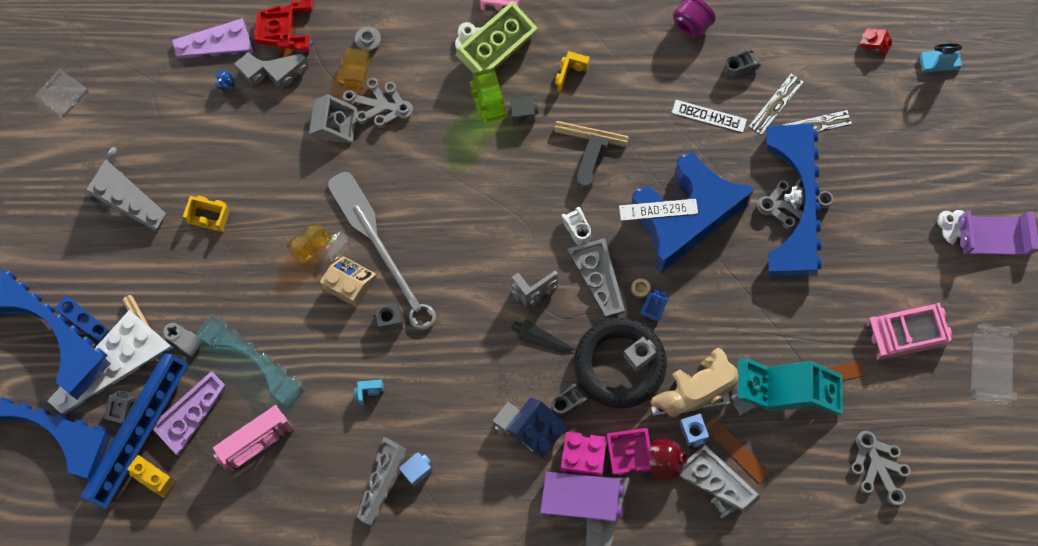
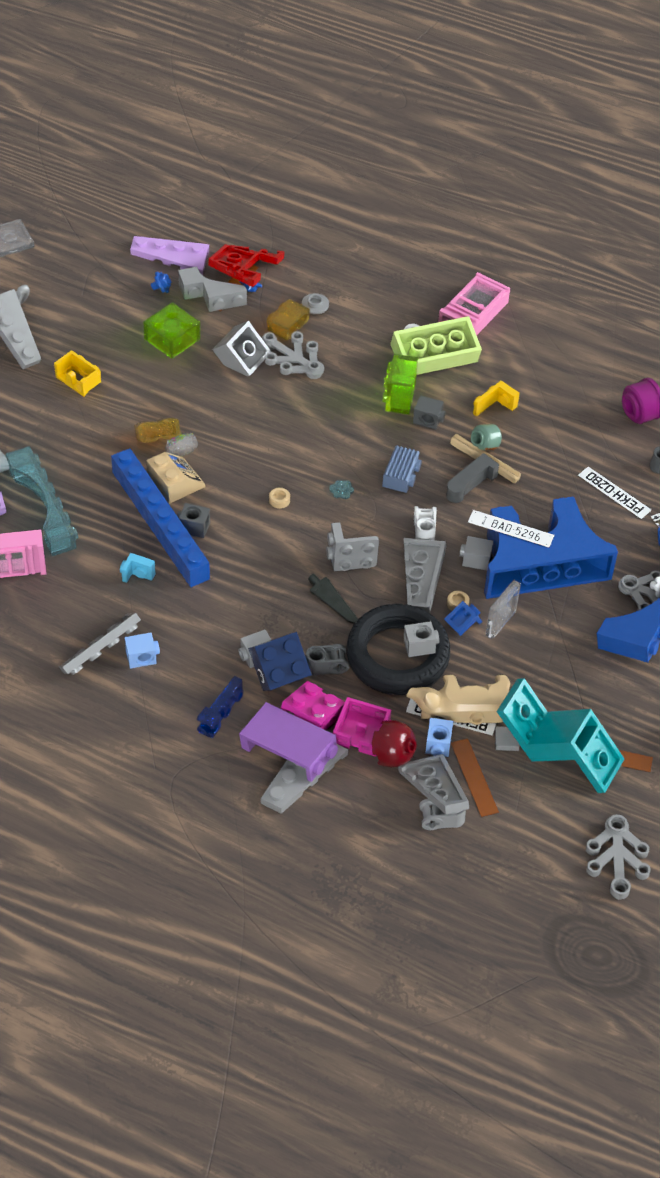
camera: 20 degrees right, 20 degrees down
(262, 129) = (171, 330): none -> clear neon green brick
(359, 329) = (160, 518): none -> blue brick
(363, 219) = (221, 435): light grey piece -> none
(444, 257) = (279, 498): none -> tan tile
(490, 226) = (342, 489): none -> clear light blue plant
(508, 507) = (221, 708): none -> clear blue plate
(530, 180) = (401, 469): none -> sand blue brick
(583, 114) = (486, 437): none -> sand green head
(633, 235) = (476, 553): none -> light grey brick
(685, 285) = (503, 609): none -> clear tile

